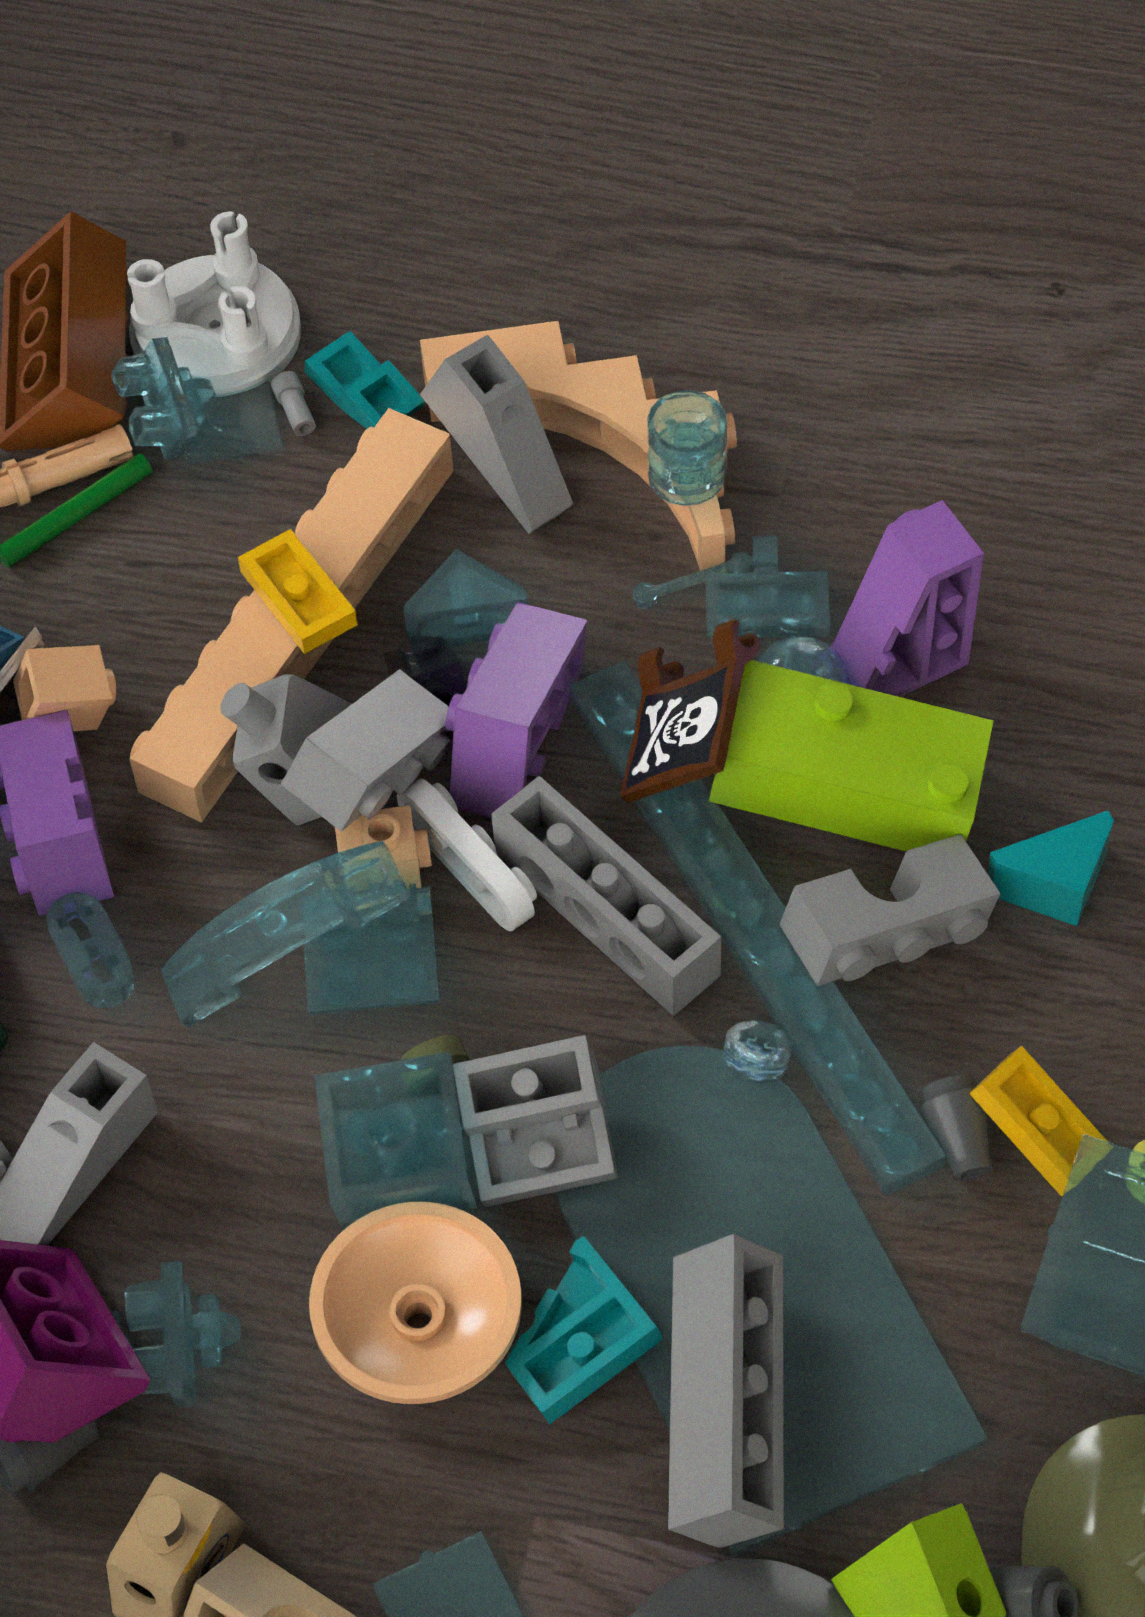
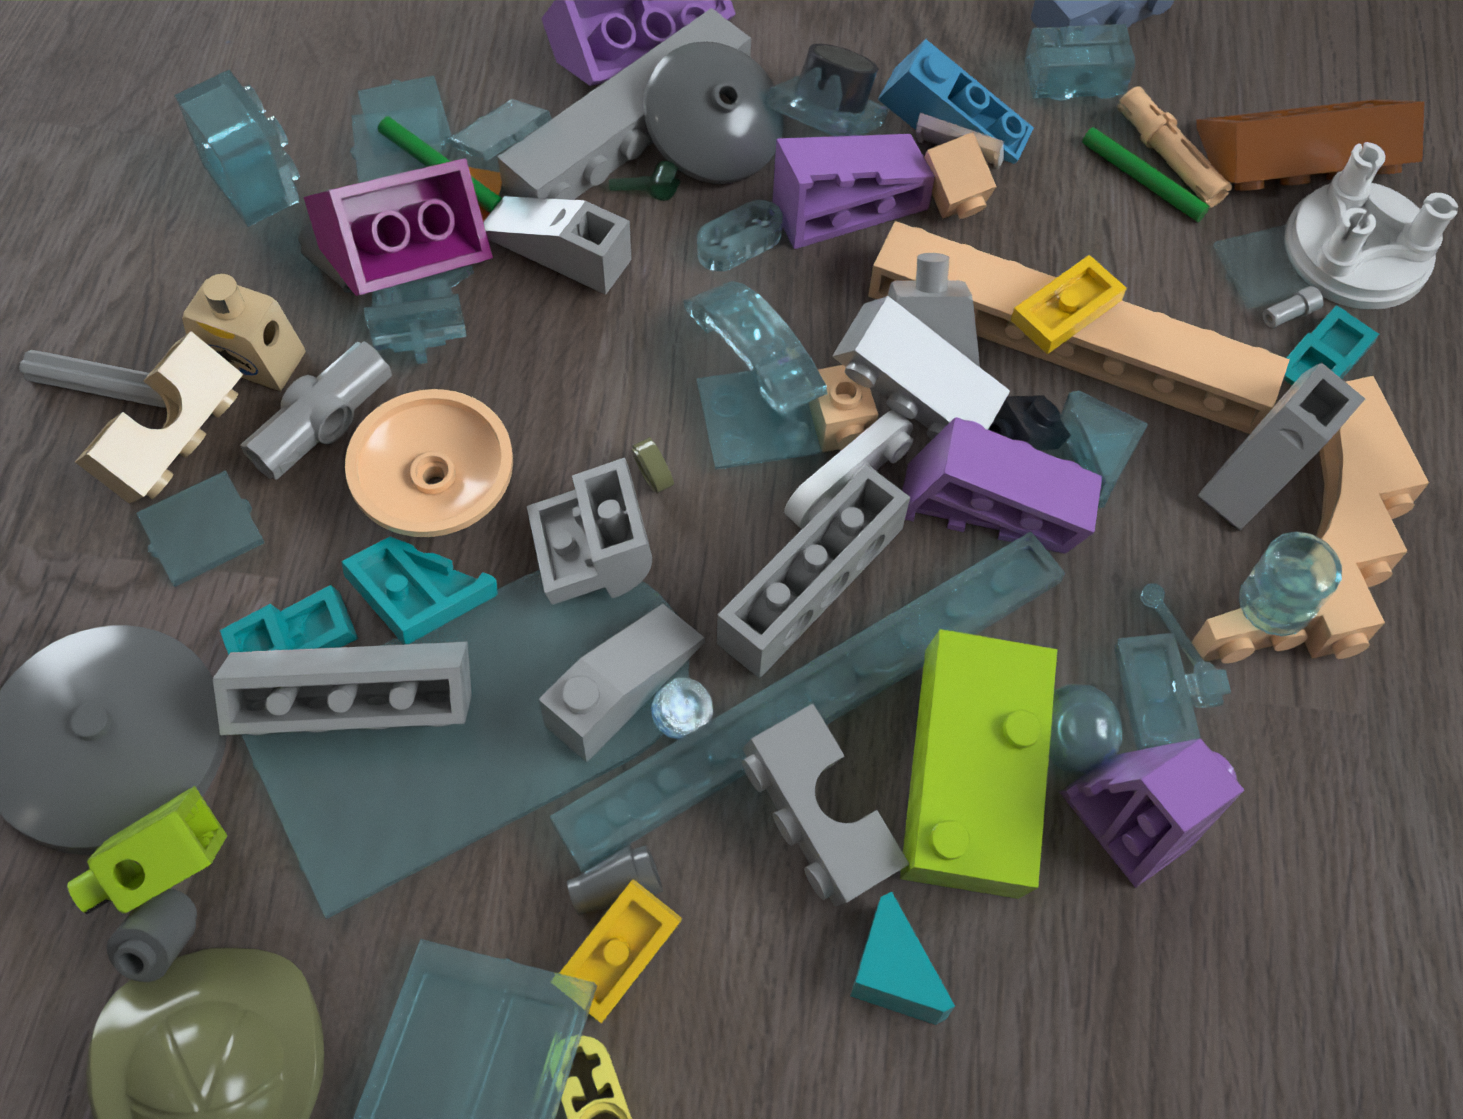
camera: 80 degrees right, 5 degrees up
(170, 397) = (1277, 188): clear light blue hips -> none
(301, 1459) = (316, 410): none -> light grey piece
(394, 1137) = (564, 429): clear light blue brick -> none
(624, 1488) = (308, 624): none -> teal slope
(685, 720) = (998, 611): flag -> none
(727, 1107) = (617, 680): none -> light grey slope

